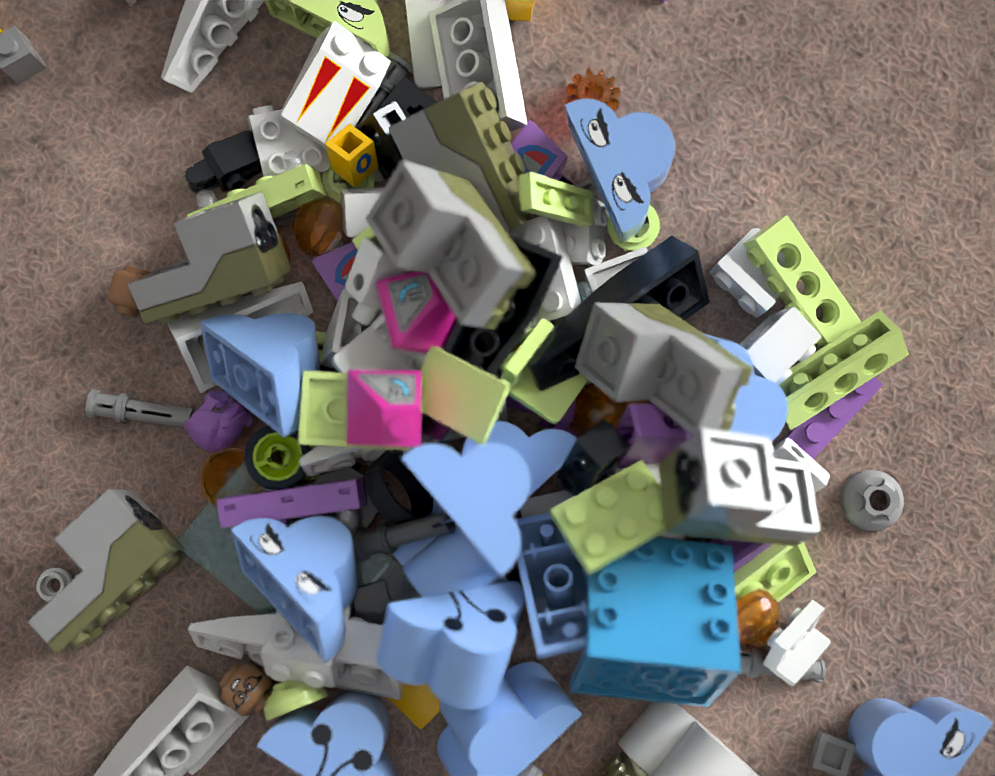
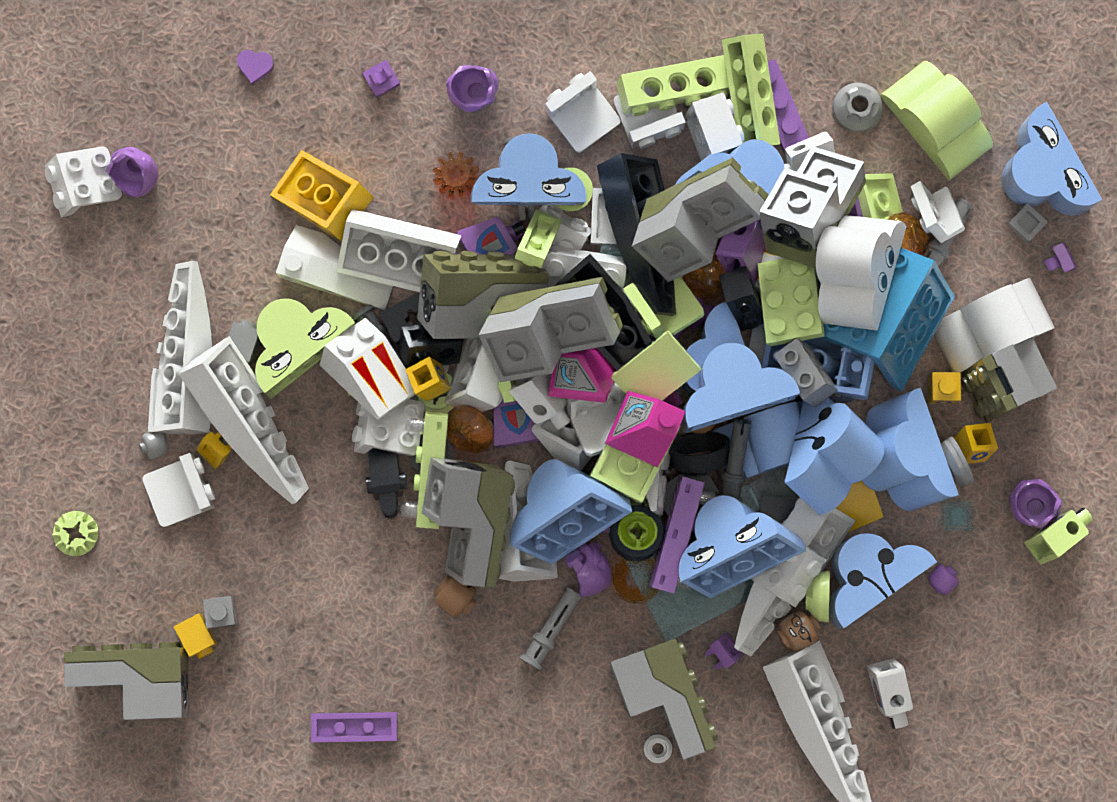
camera: 70 degrees left, 0 degrees up
(191, 610) = (725, 651): none -> medium lavender tile
(536, 571) = (807, 371): none -> light grey brick
(596, 739) = (944, 387): none -> yellow brick
(685, 581) = (857, 270): none -> white brick
(696, 70) = (472, 87): none -> medium lavender hair
(724, 198) = (581, 112): none -> white bracket
(908, 601) = (940, 117): none -> yellowish green brick

